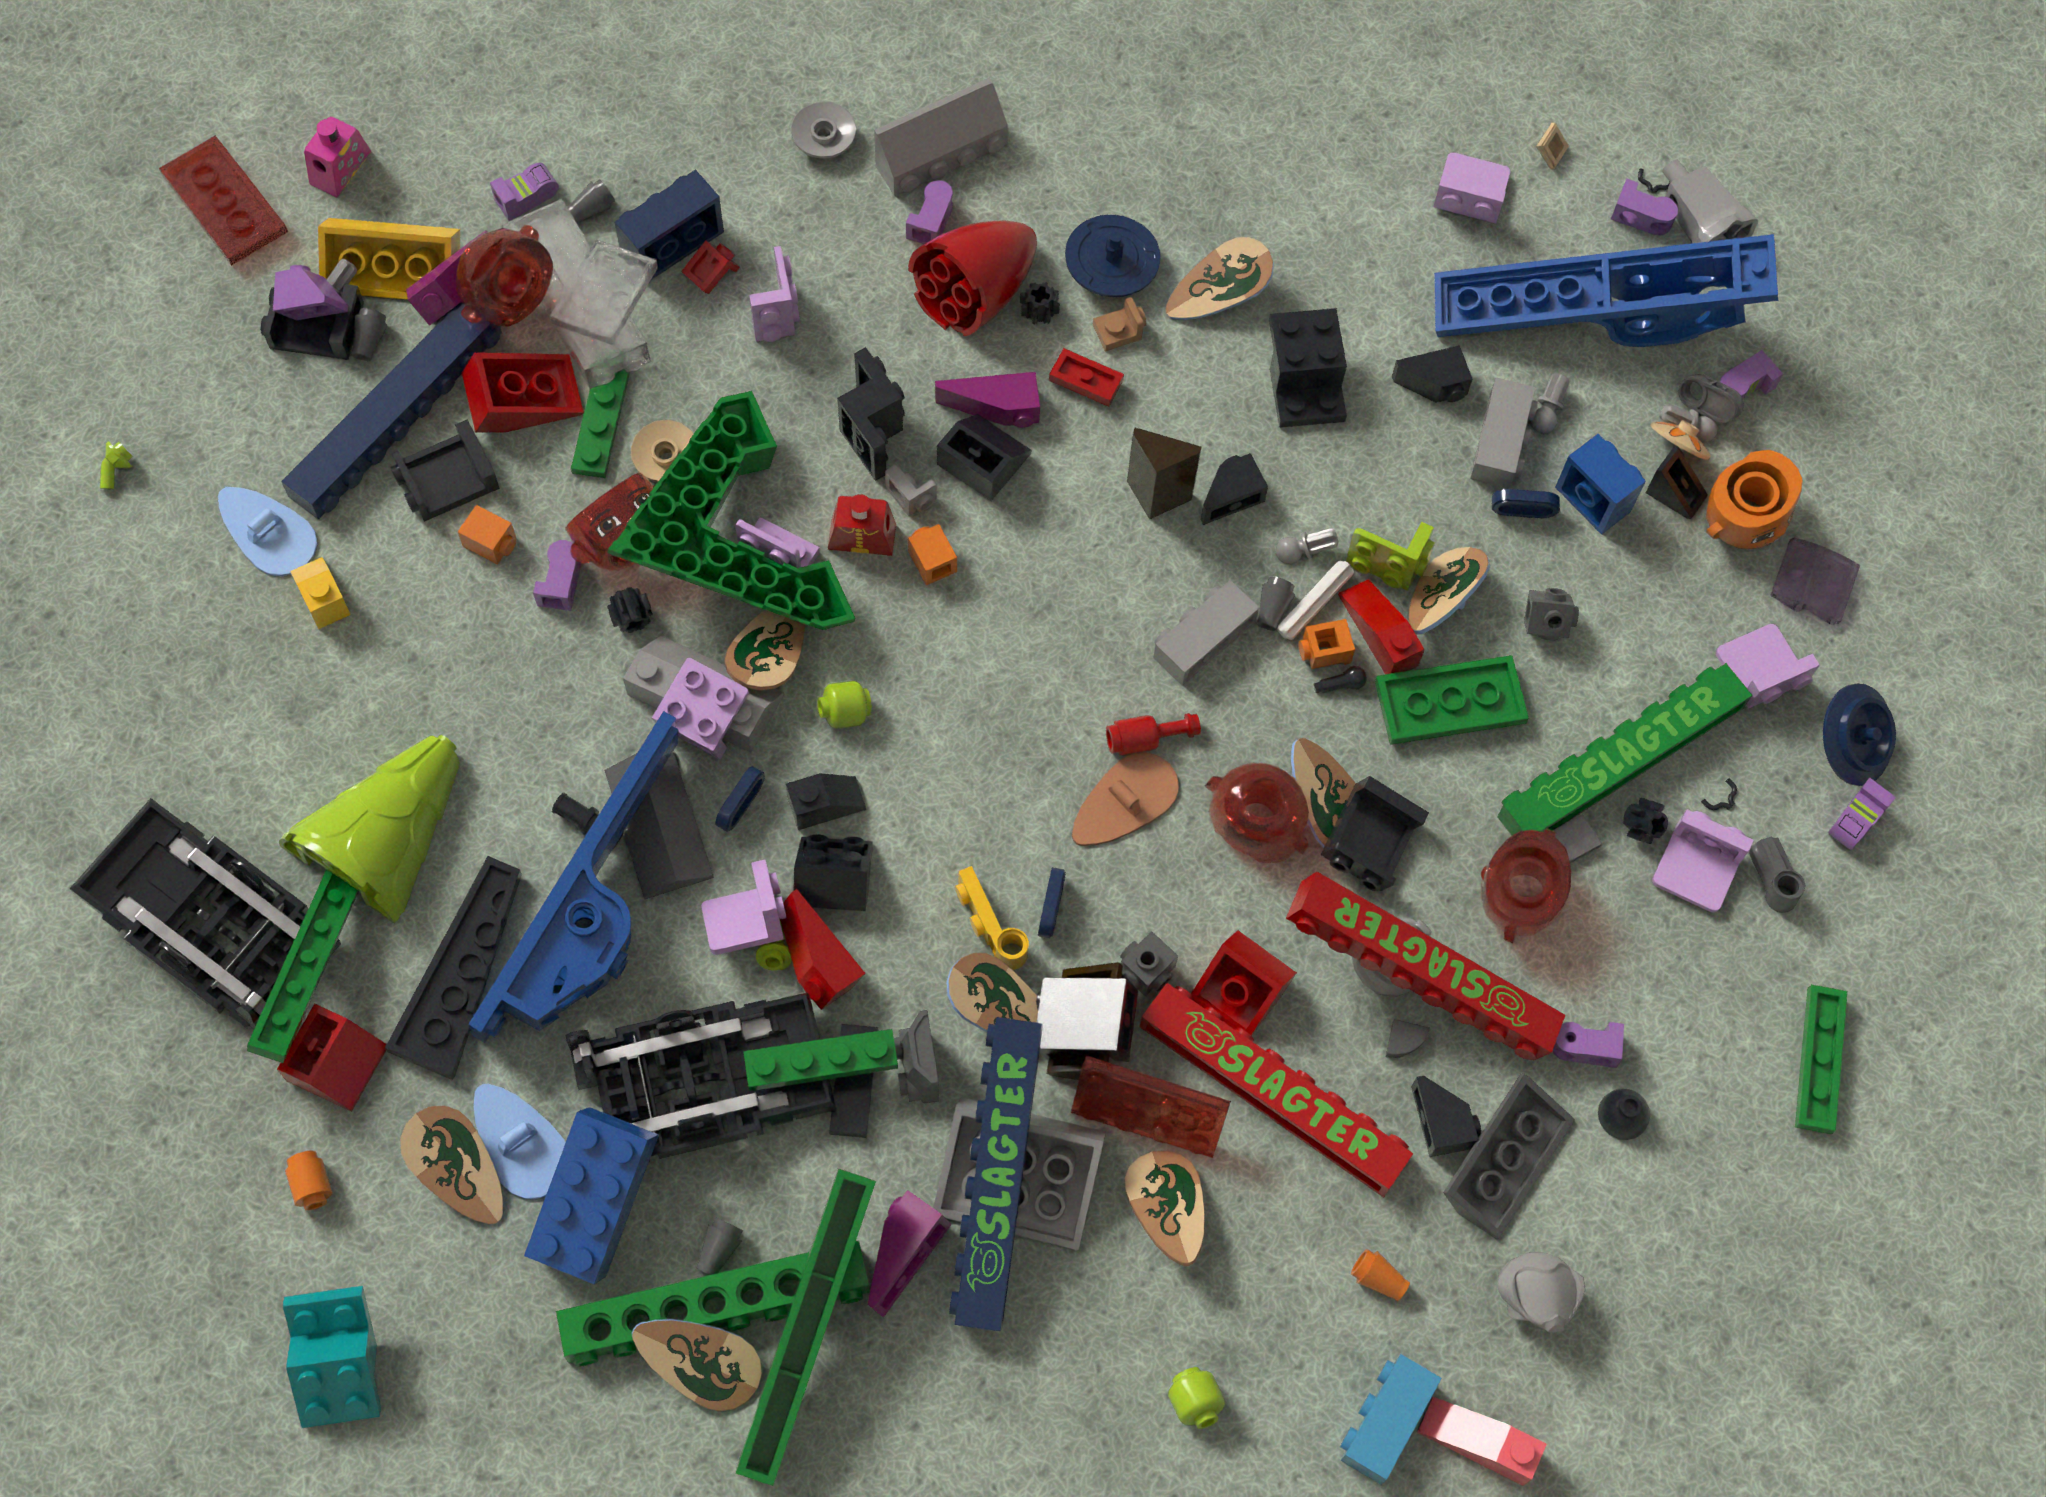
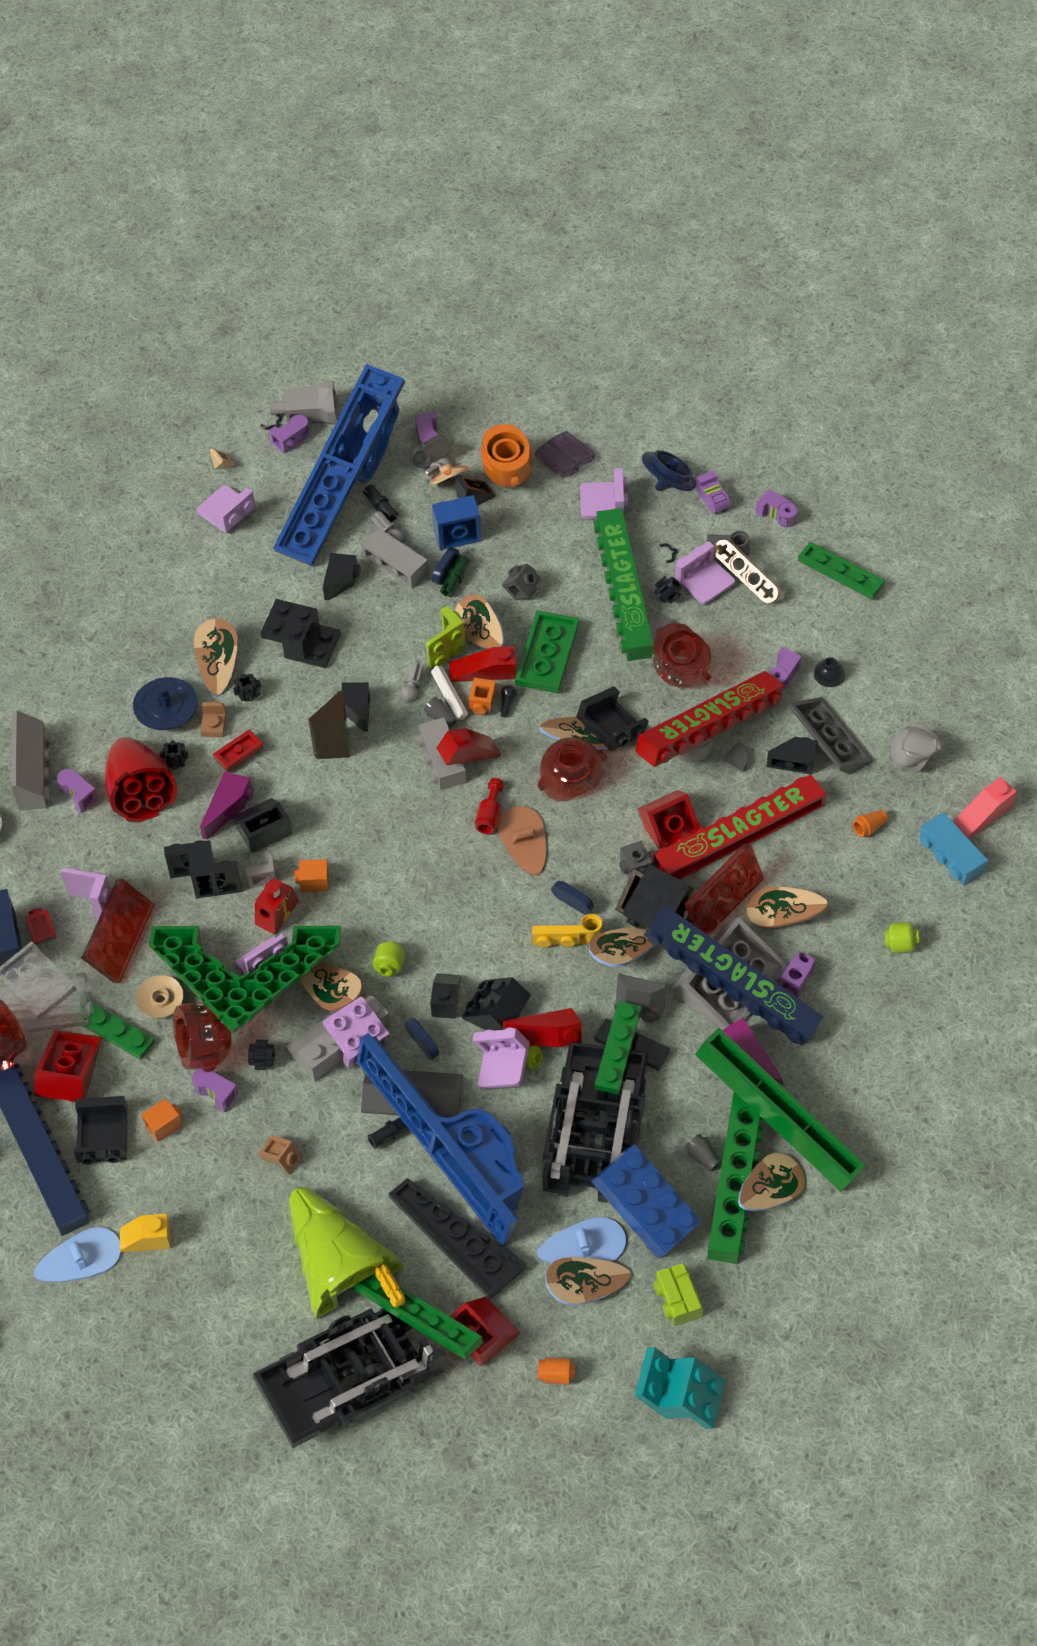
camera: 60 degrees left, 10 degrees down
(331, 911) = (390, 1285): none -> yellow axle
(481, 1298) = (678, 1294): none -> lime brick
(496, 699) = (281, 1152): none -> medium nougat bracket
(734, 357) = (118, 931): none -> clear red plate
(1066, 1267) = (797, 973): none -> medium lavender leg
(1190, 351) = (247, 687): none -> black gear
(1222, 659) = (466, 746): none -> red slope
(1516, 523) = (454, 576): none -> dark green pin
(1588, 375) = (380, 502): none -> black pin
(1745, 921) = (749, 568): none -> beam
(1886, 919) = (777, 508): none -> medium lavender leg

